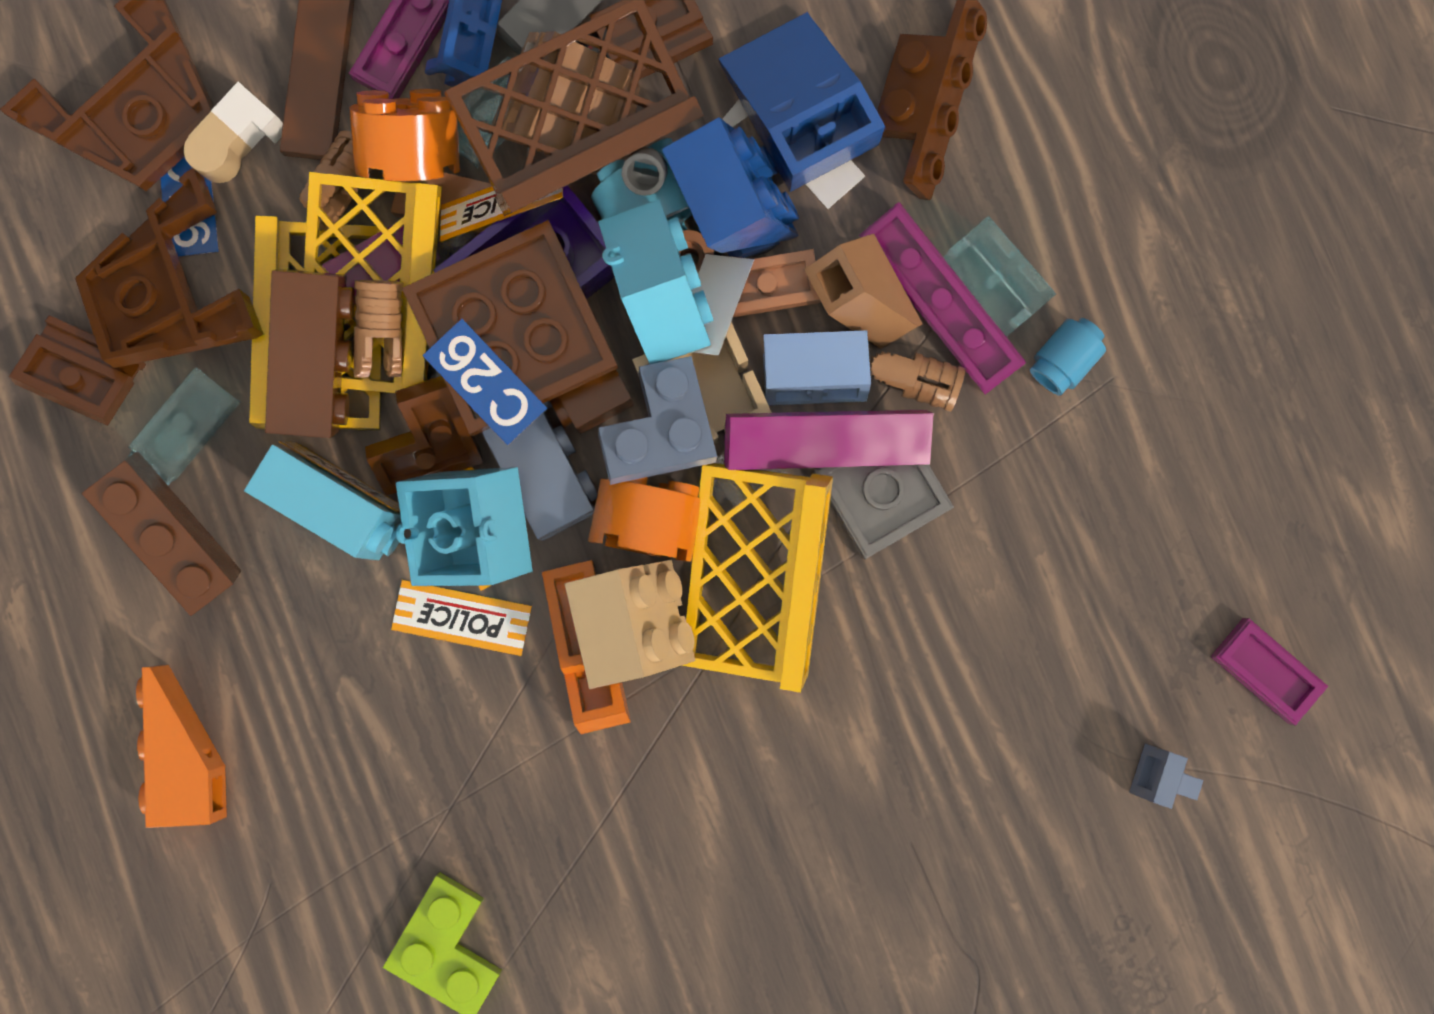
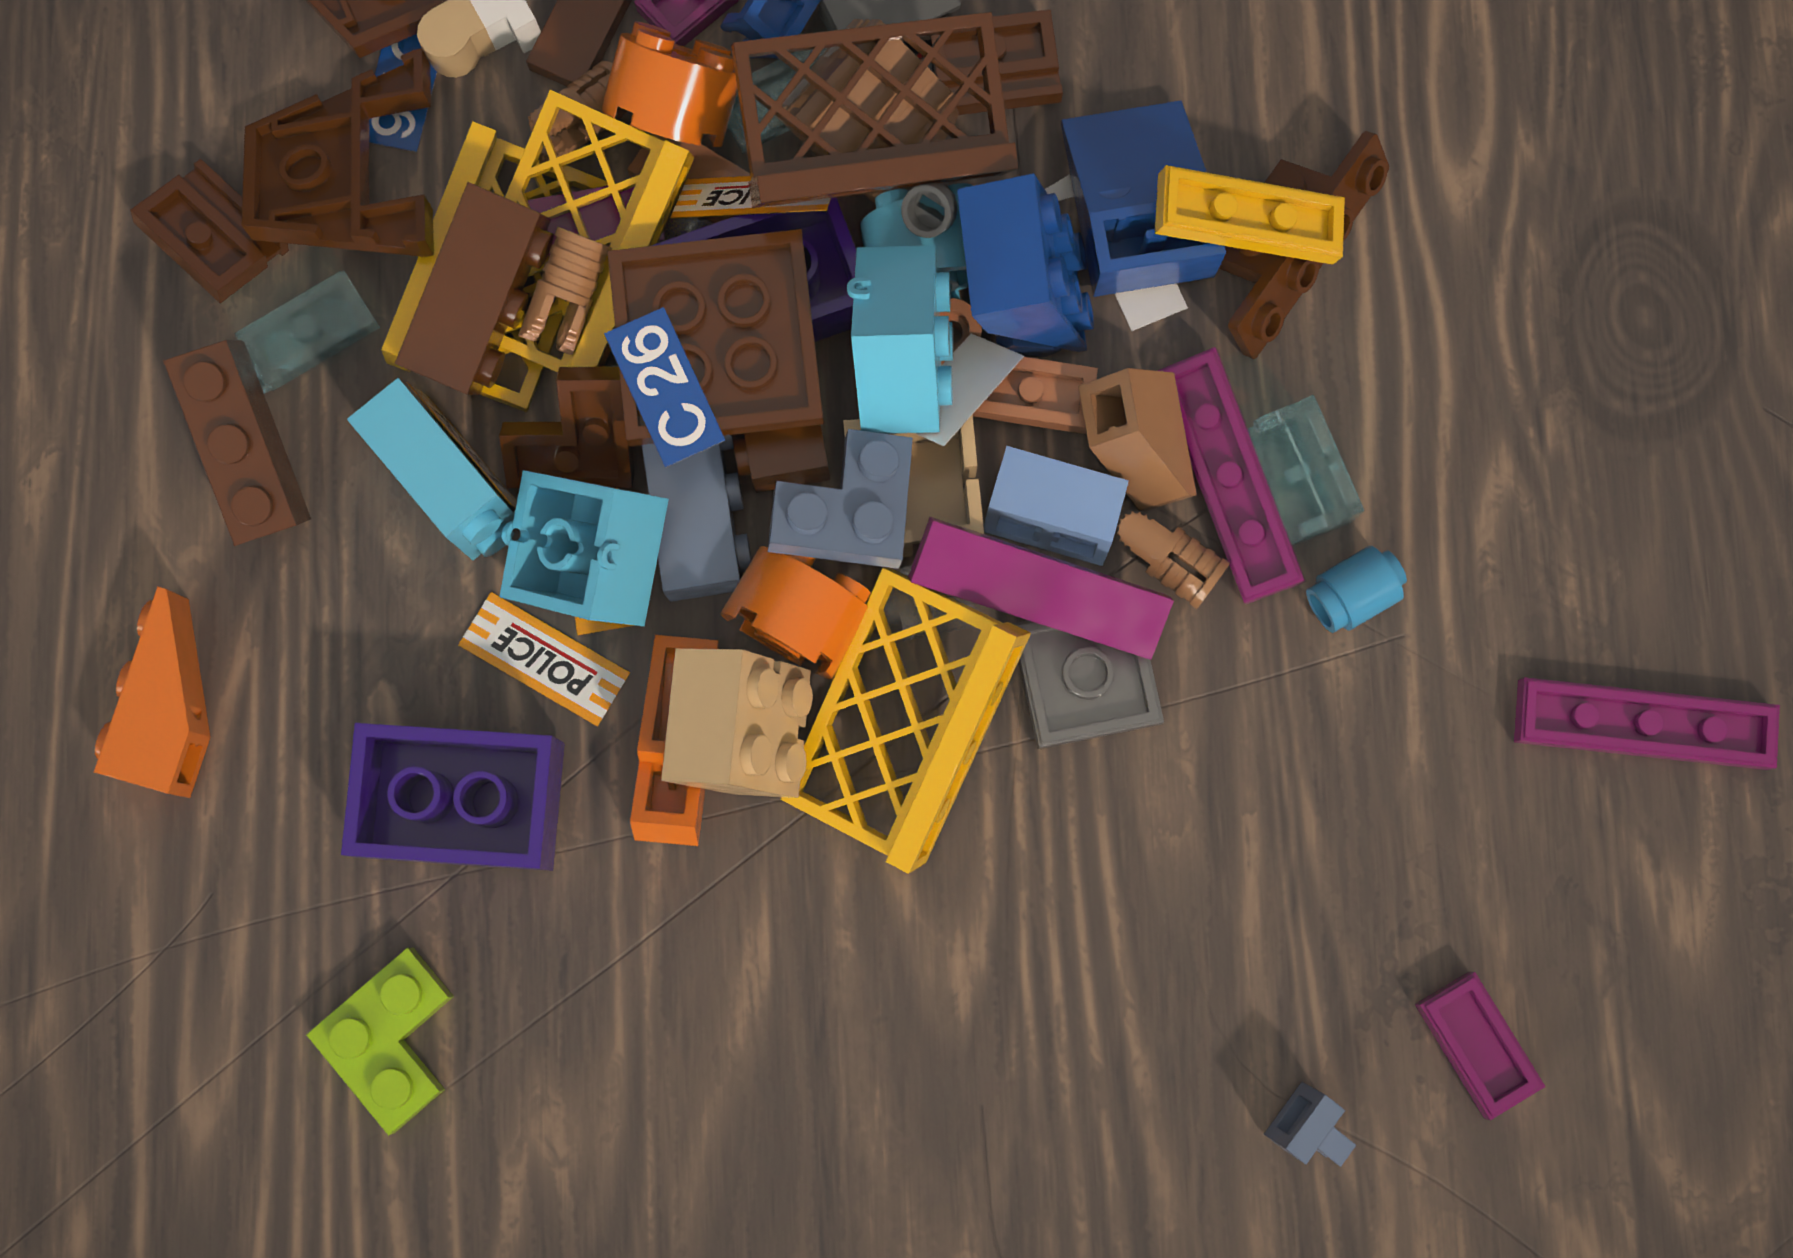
camera: 20 degrees right, 5 degrees down
(431, 752) = (453, 796): none -> dark purple brick
(894, 90) = (1249, 215): none -> yellow tile
(1318, 384) = (1647, 723): none -> magenta tile

